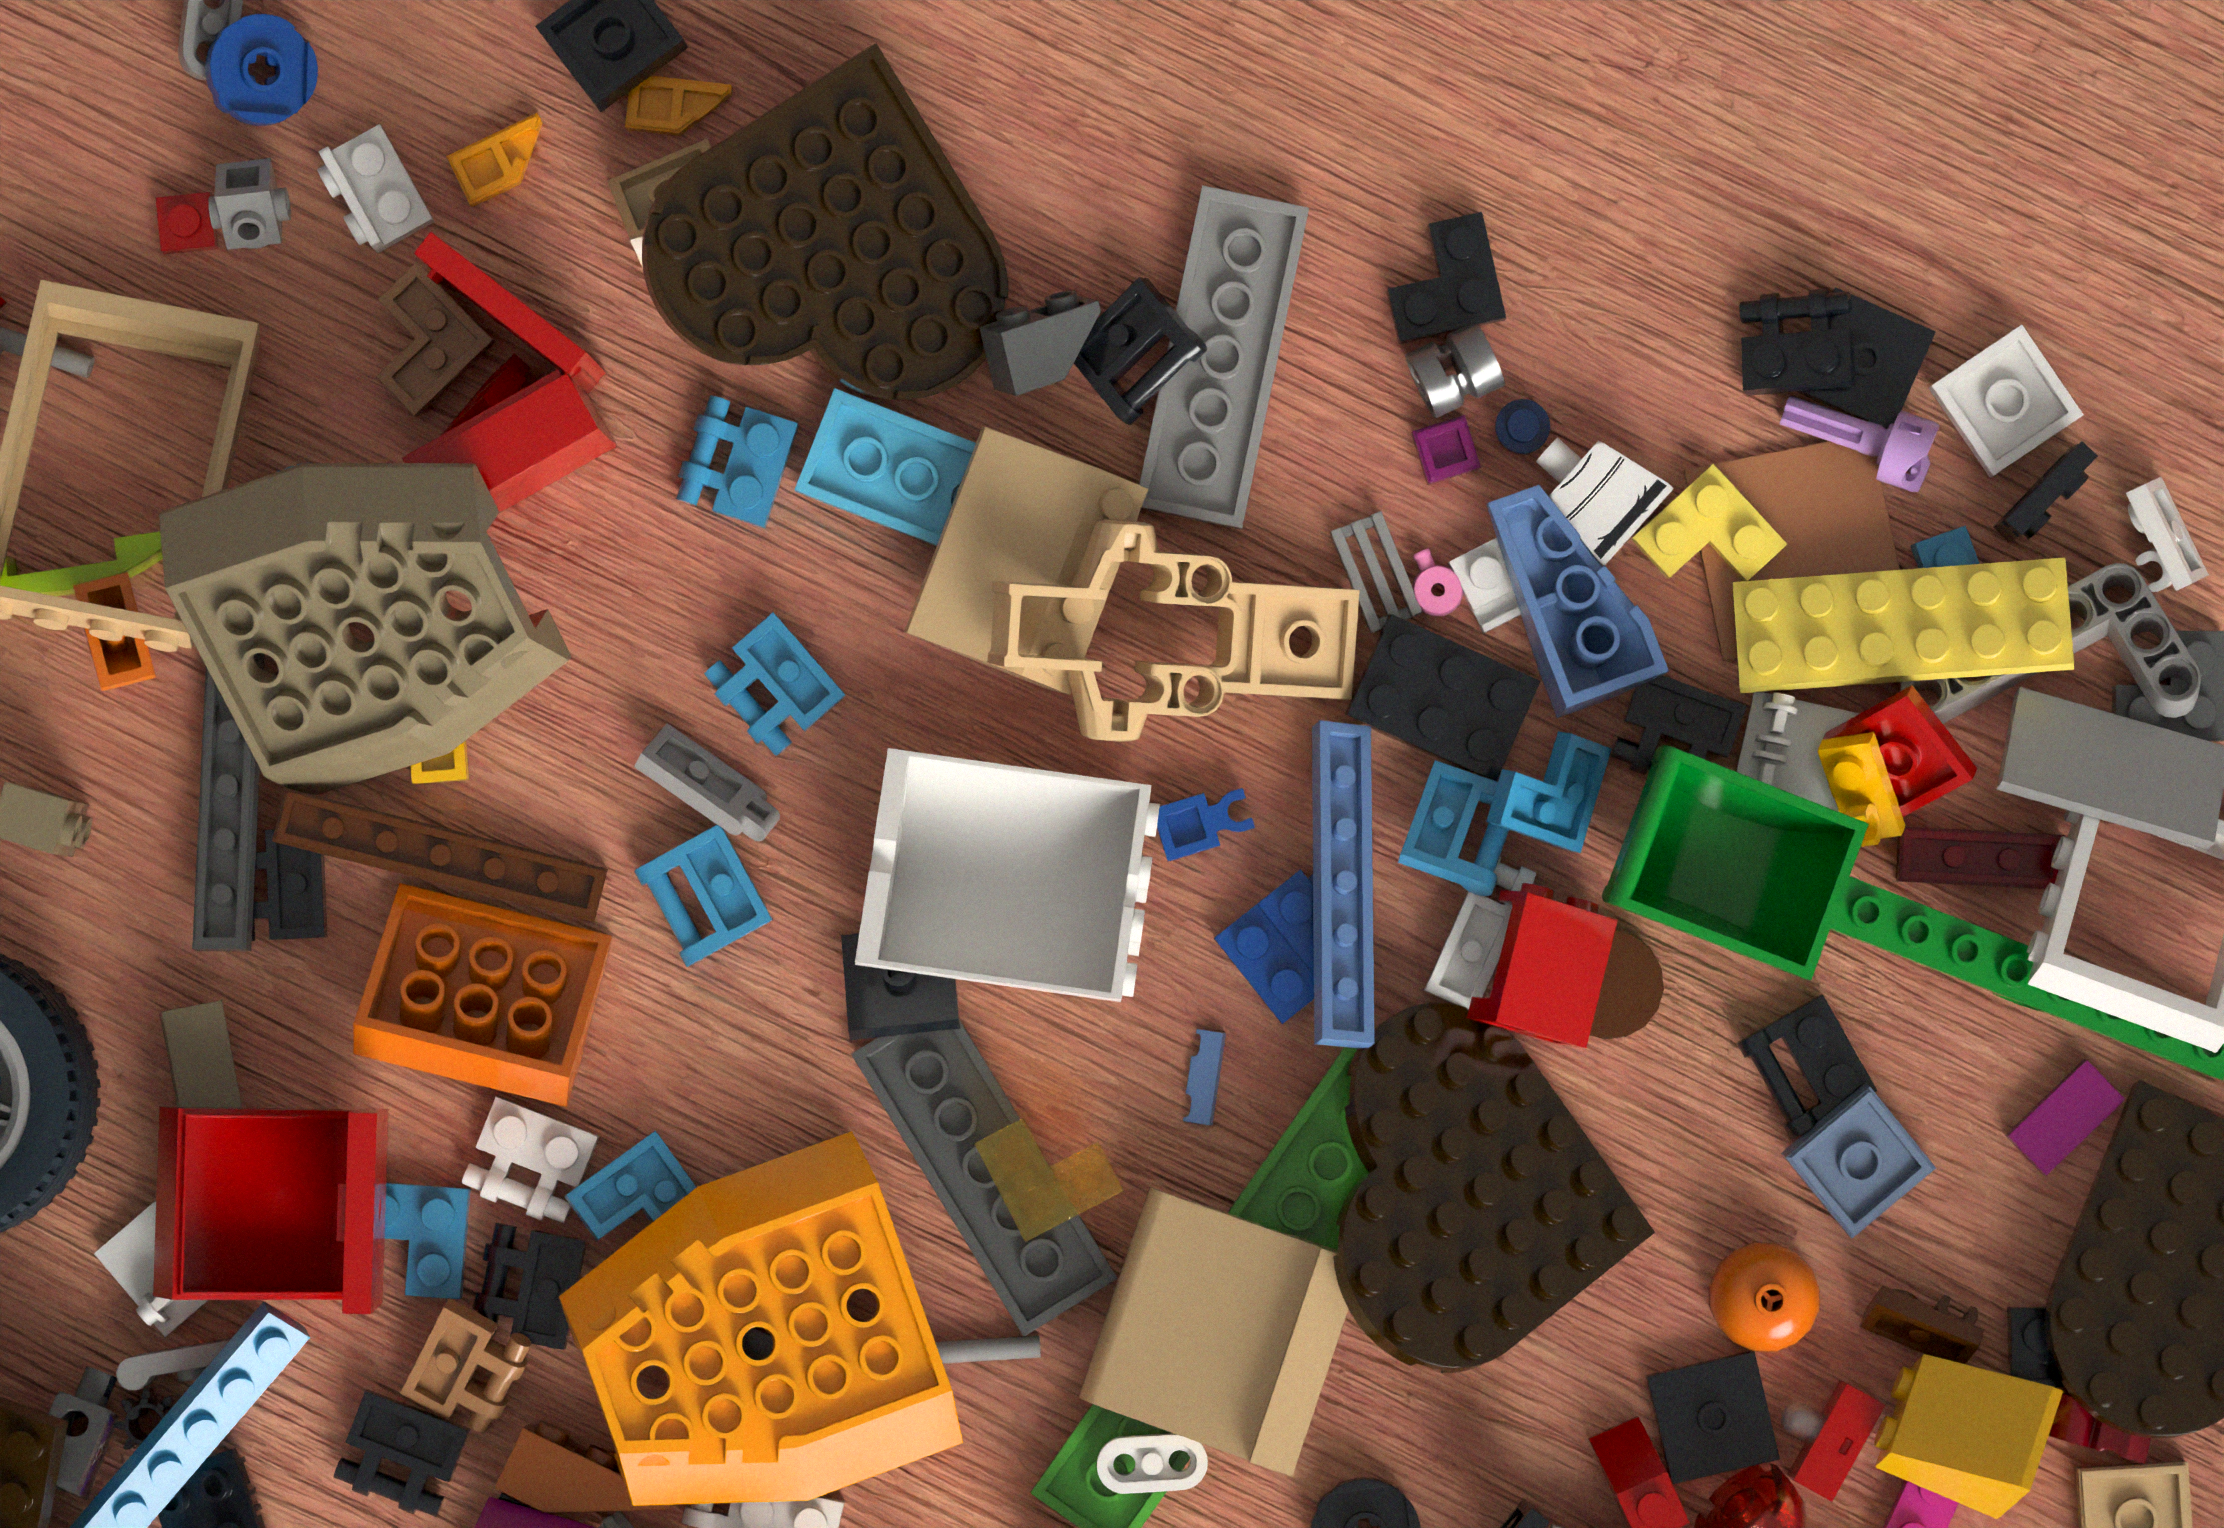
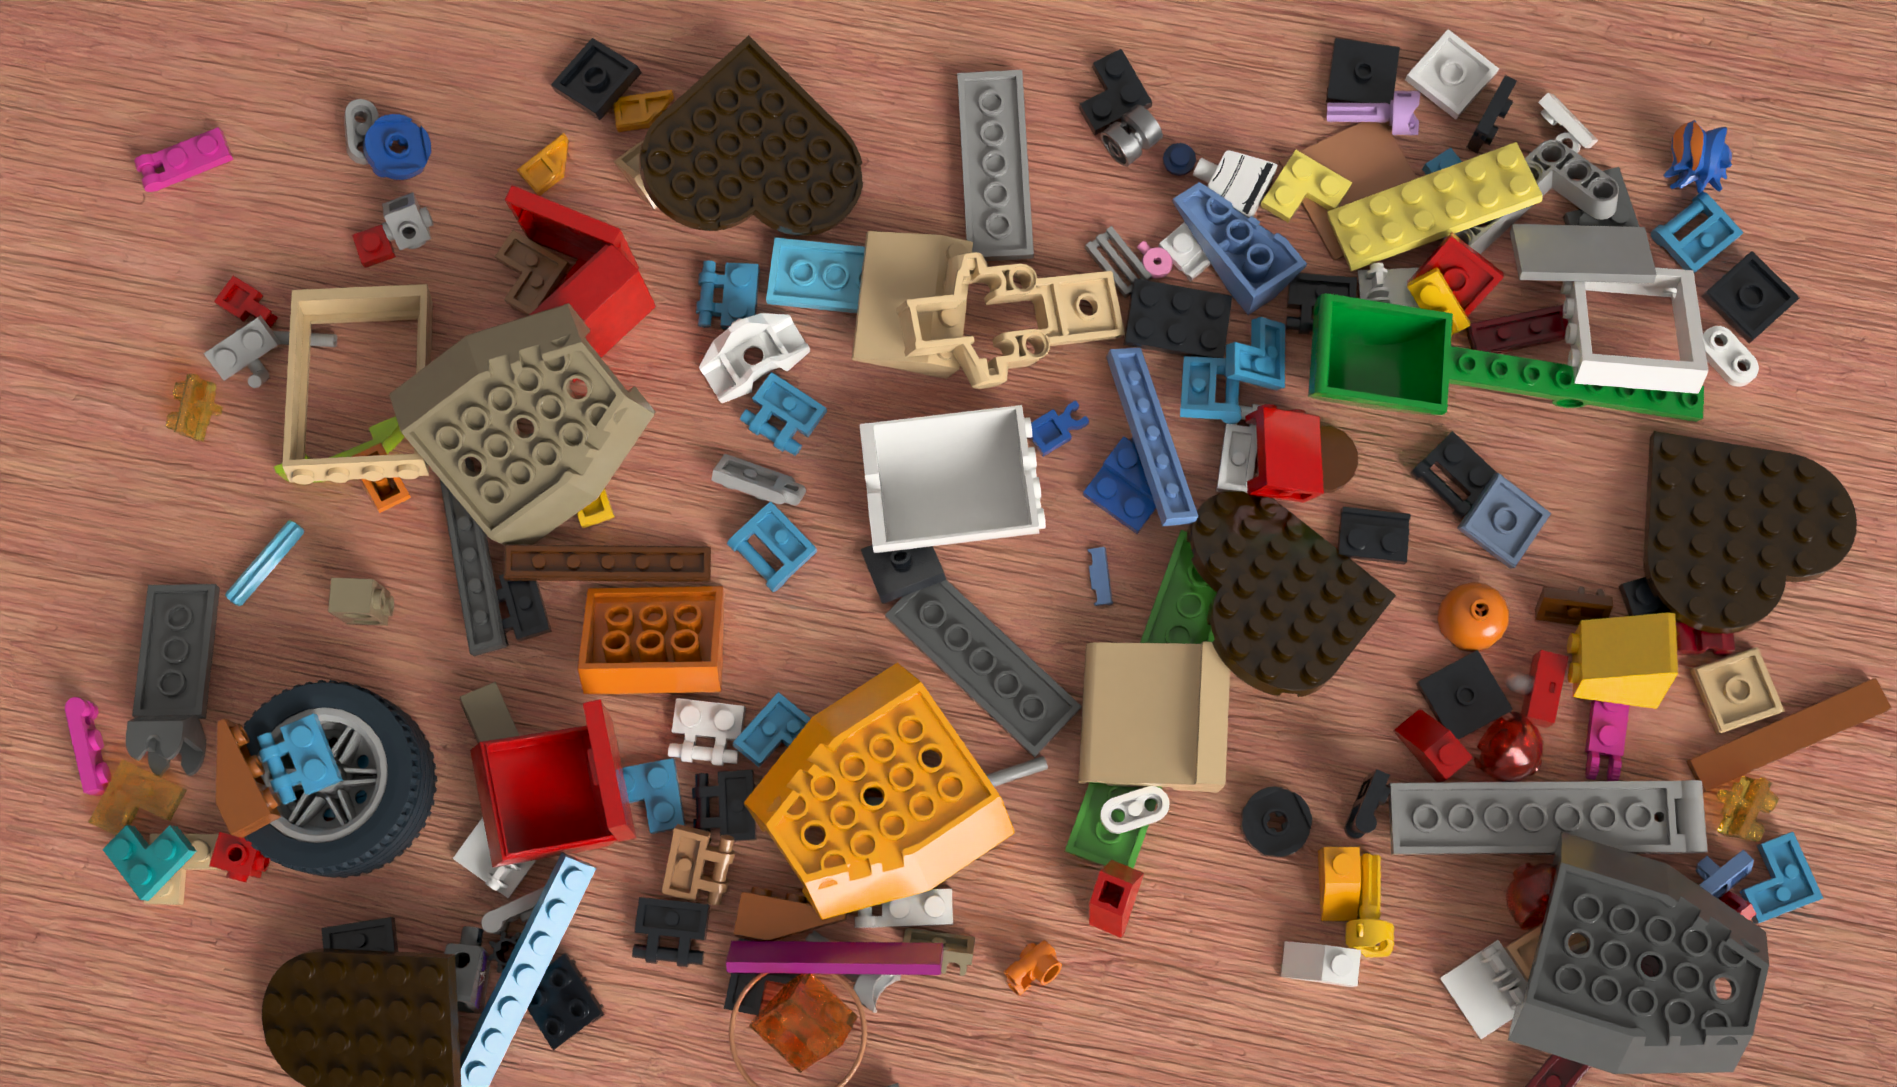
camera: 10 degrees left, 10 degrees down
(376, 188) = (479, 198): white bracket -> none
(798, 564) = (725, 363): none -> white piece
(1038, 344) = (886, 183): dark grey slope -> none
(1040, 1193) = (1021, 664): clear yellow plate -> none
(1124, 337) = (935, 166): black plate -> none
(1446, 450) = (1138, 184): magenta tile -> none
(1649, 1127) = (1374, 535): none -> black plate
(1798, 359) = (1326, 80): black plate -> none
(2065, 1117) = (1617, 465): magenta tile -> none

